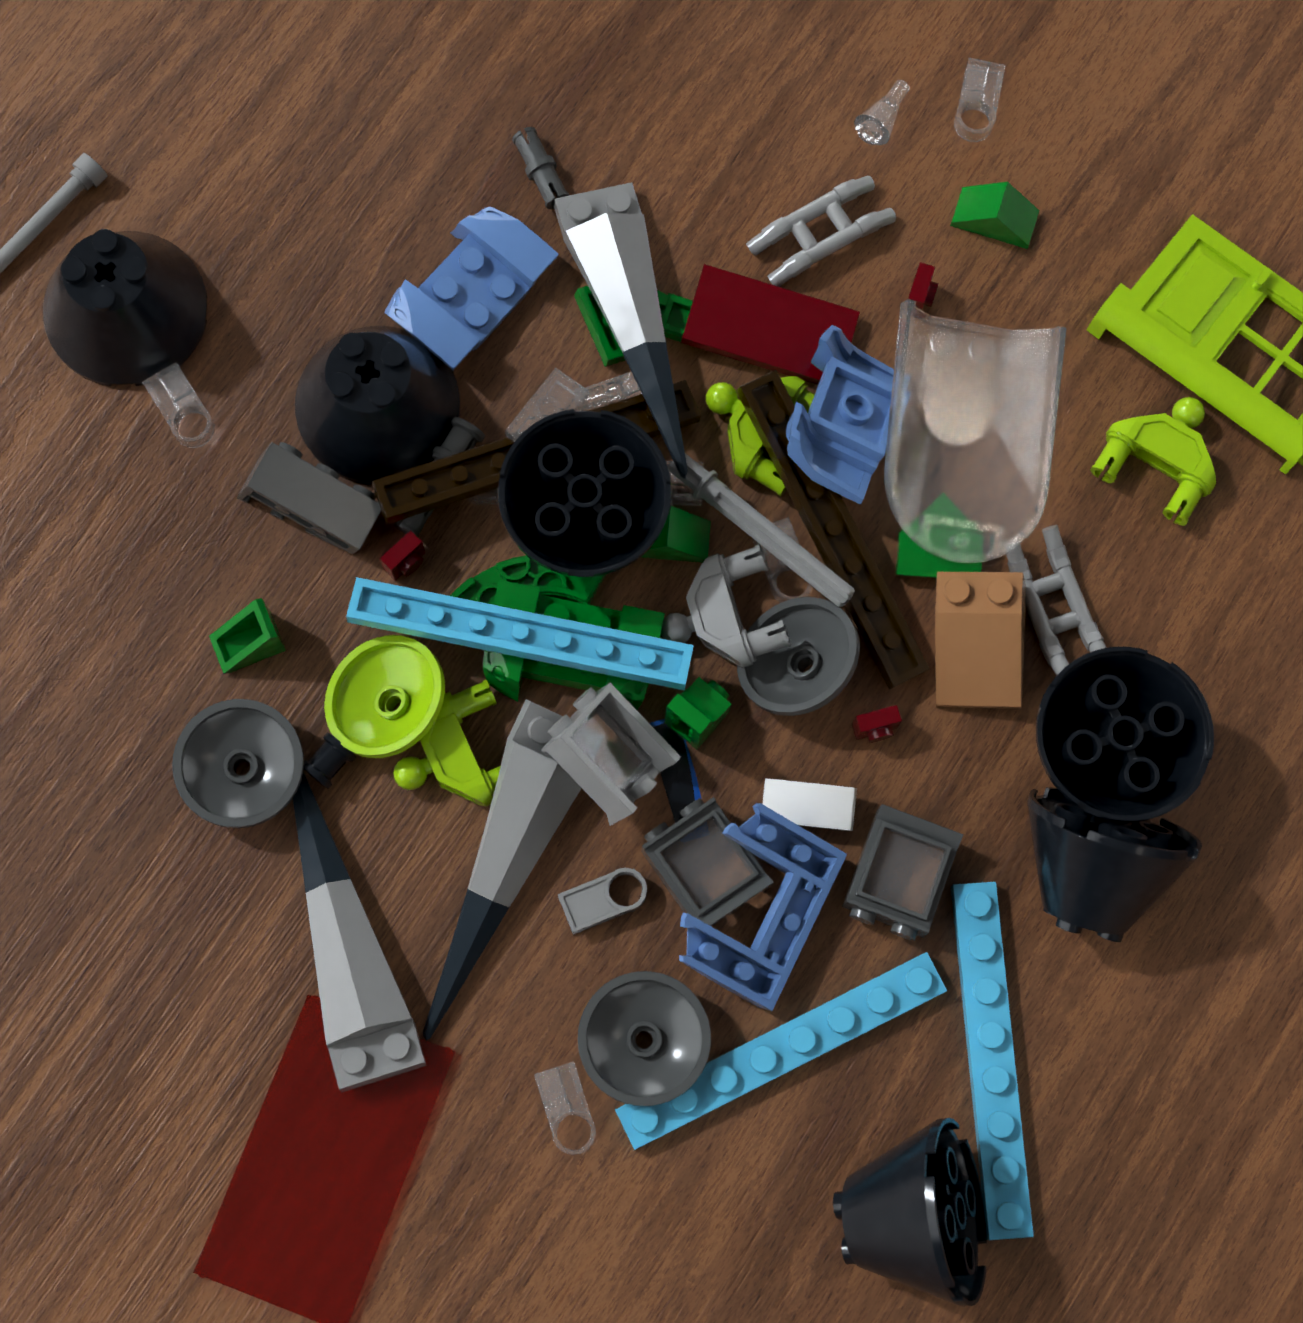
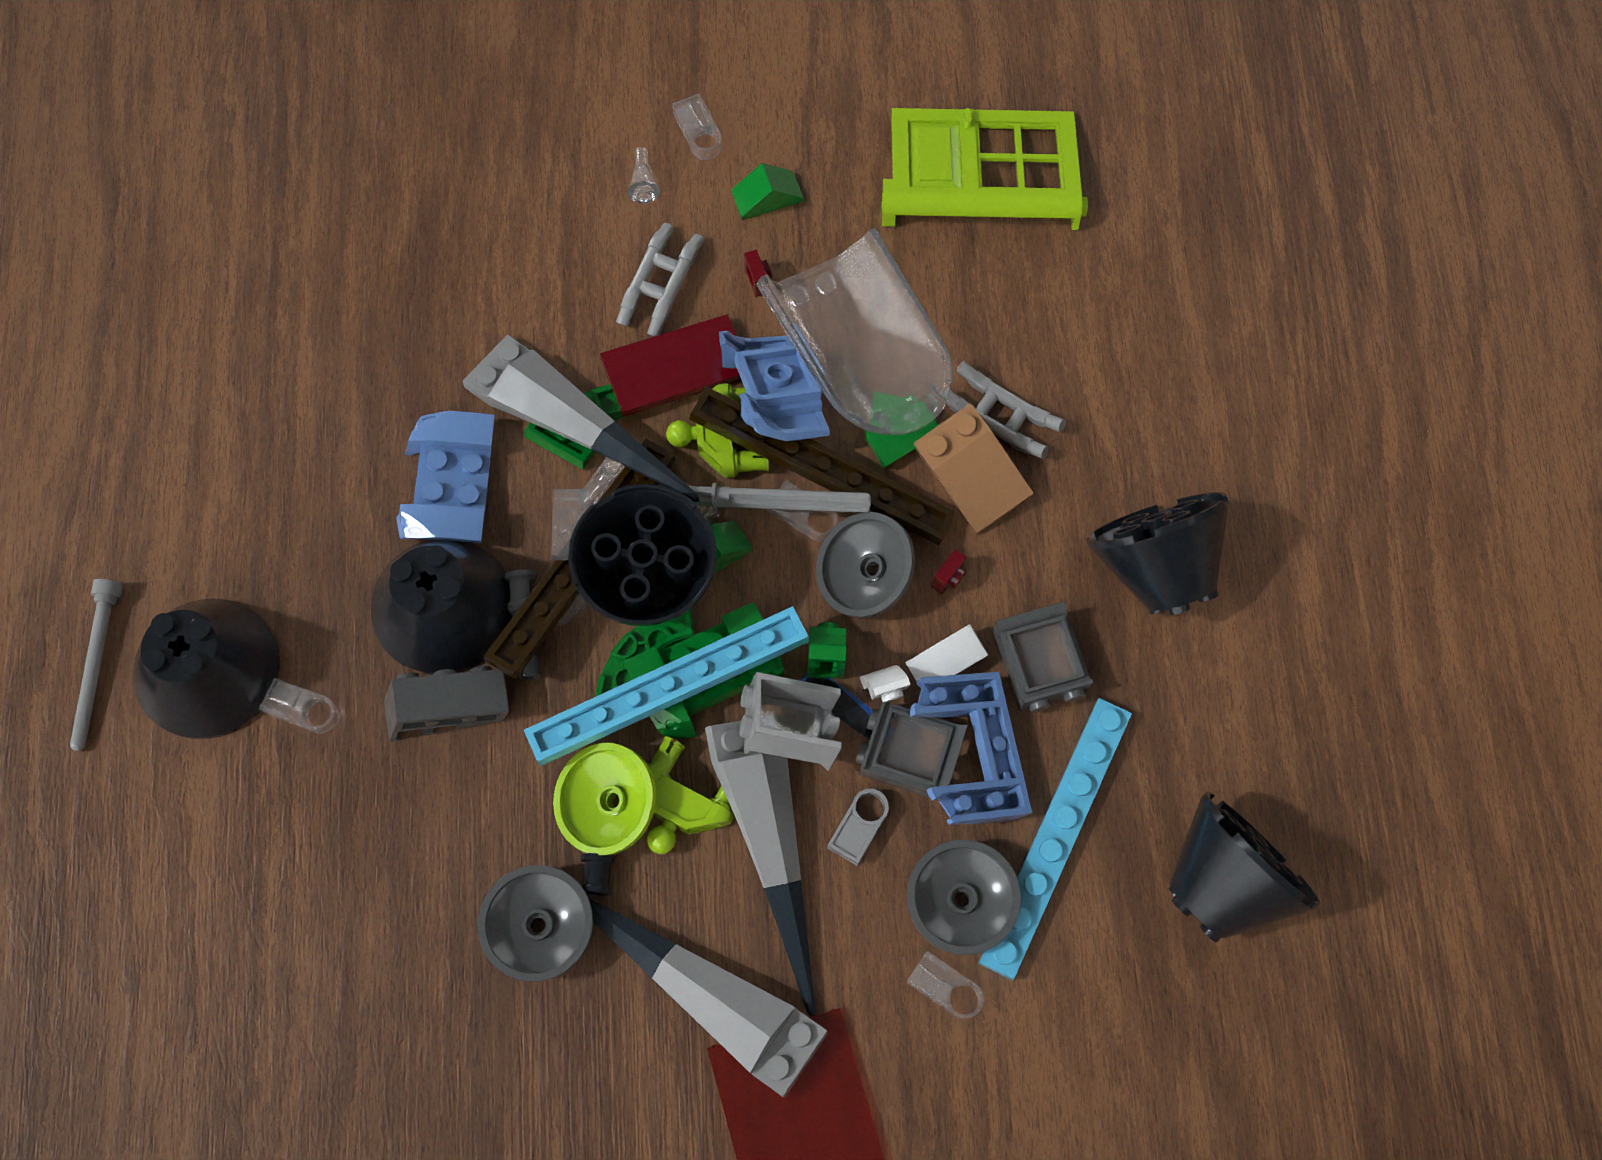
camera: 35 degrees left, 5 degrees down
(247, 638) = (473, 832): green slope -> none
(404, 556) = (542, 695): dark red plate -> none
(539, 166) = (434, 367): dark grey pin -> none
(716, 613) = (789, 578): light grey connector -> none
(727, 784) = (886, 683): none -> white slope
(991, 1061) = (1195, 738): medium azure plate -> none
(1124, 734) = (1120, 456): black cone -> none
(1167, 446) = (994, 262): lime connector -> none

